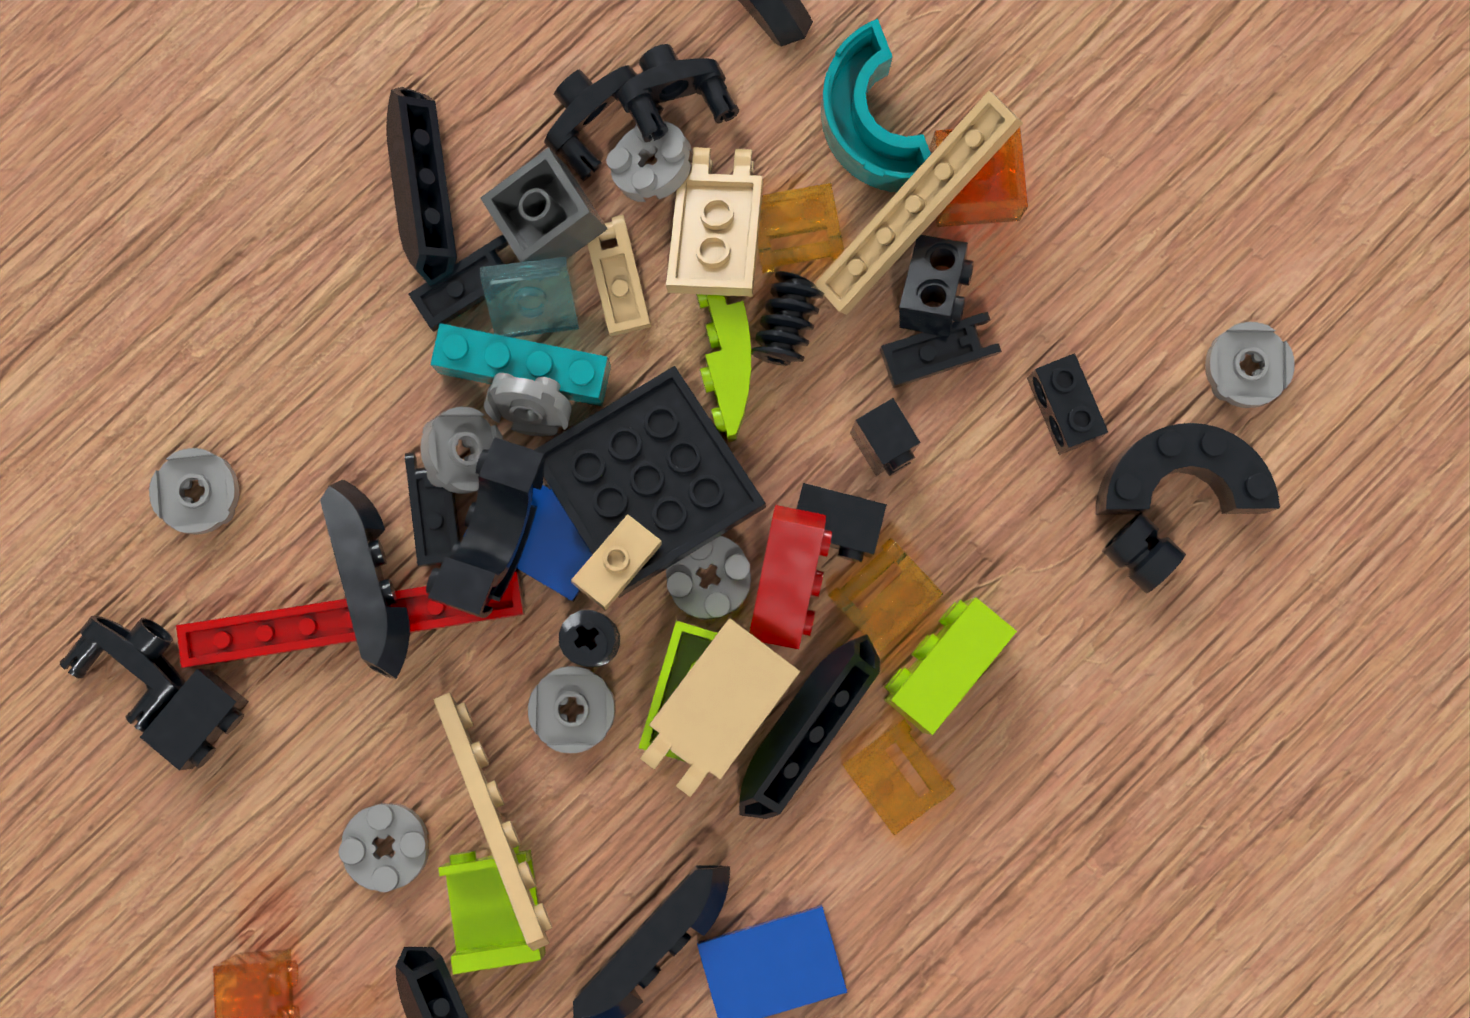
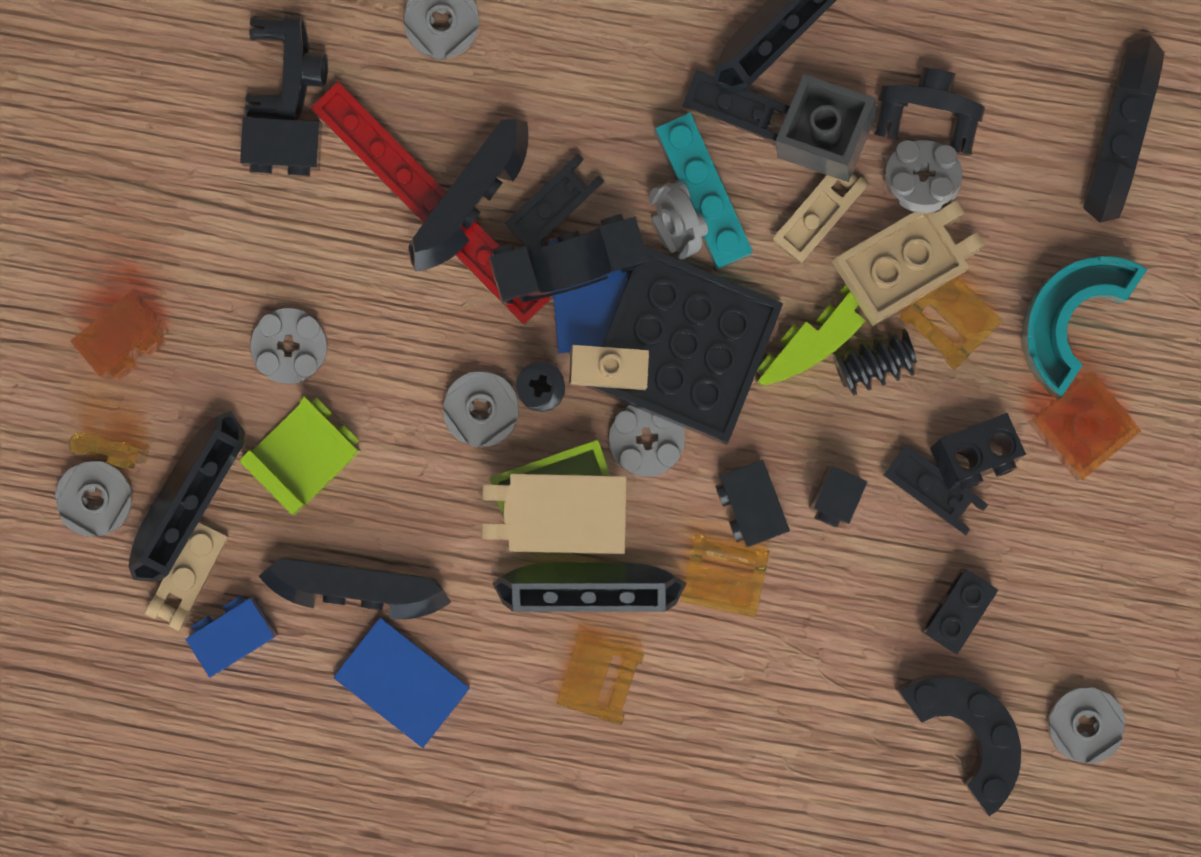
camera: 50 degrees right, 5 degrees up
(439, 448) = (598, 180): light grey plate -> none
(499, 835) = (358, 424): tan plate -> none
(530, 297) = (756, 163): clear light blue tile -> none
(668, 79) = (996, 145): black connector -> none
(790, 577) = (687, 498): red brick -> none
(918, 202) = (1026, 397): tan plate -> none
(948, 664) = (705, 655): lime brick -> none
(1144, 552) = (889, 741): black wheel -> none

